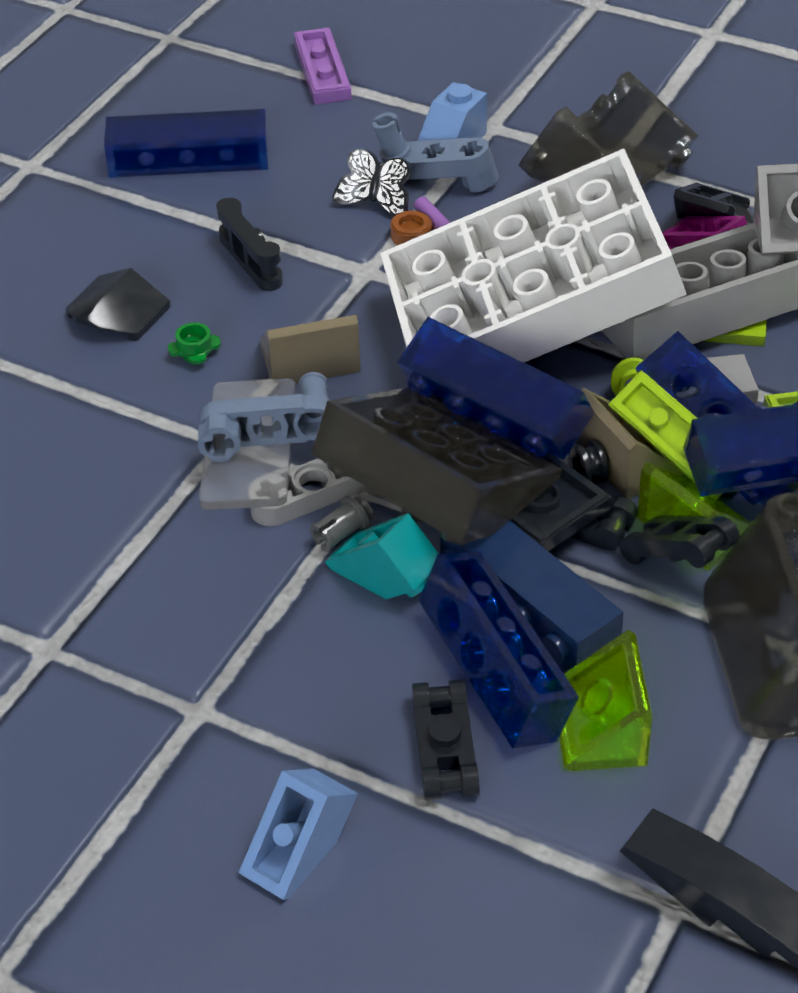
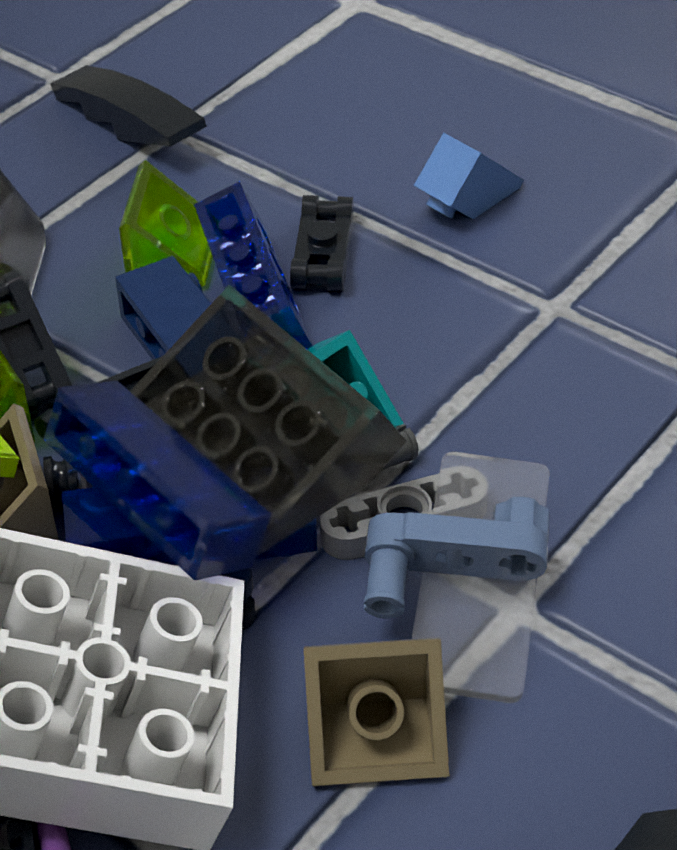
camera: 170 degrees left, 0 degrees up
(194, 343) = (552, 750): green plate -> none

